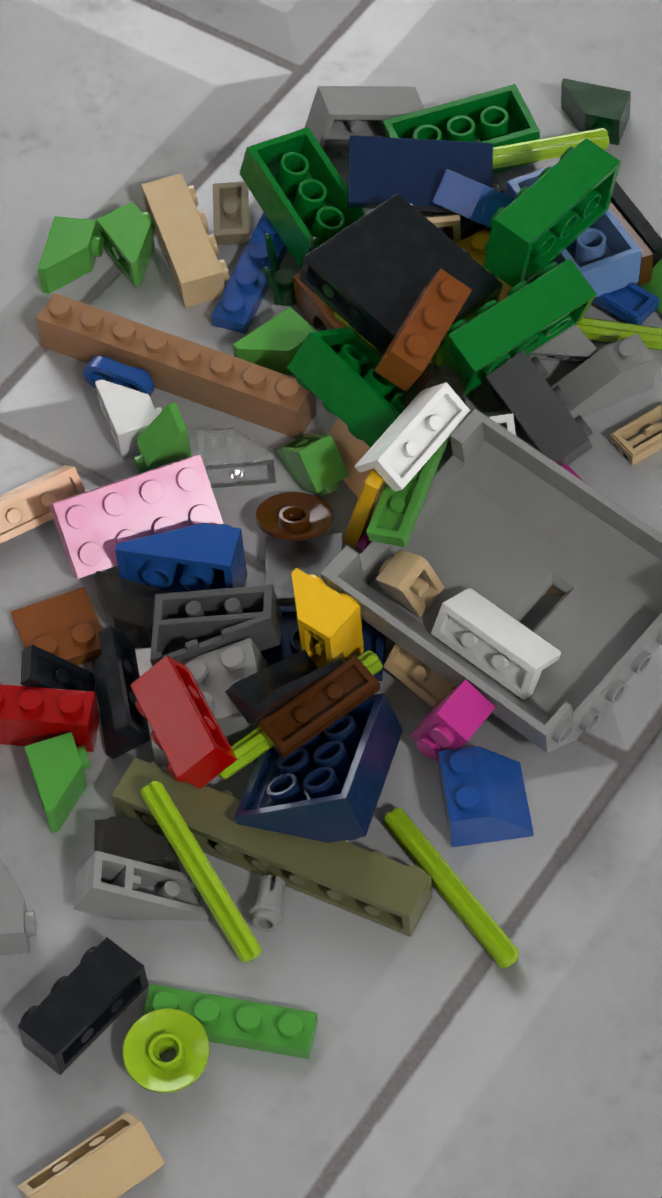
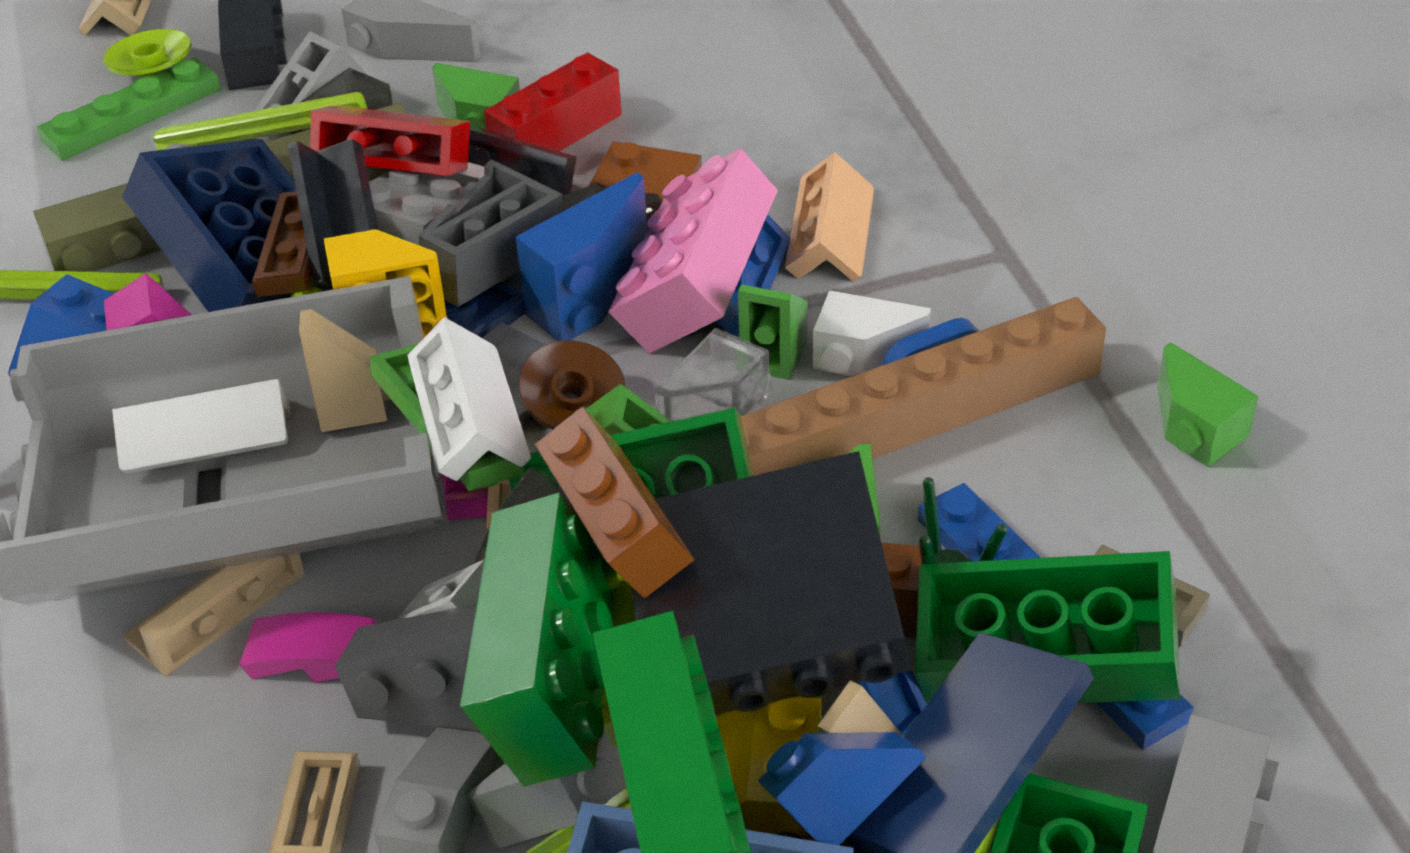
camera: 125 degrees right, 10 degrees down
(47, 670) = (580, 129): black slope -> none
(128, 239) = (1165, 466): bright green slope -> none
(184, 239) = (1091, 505): tan brick -> none

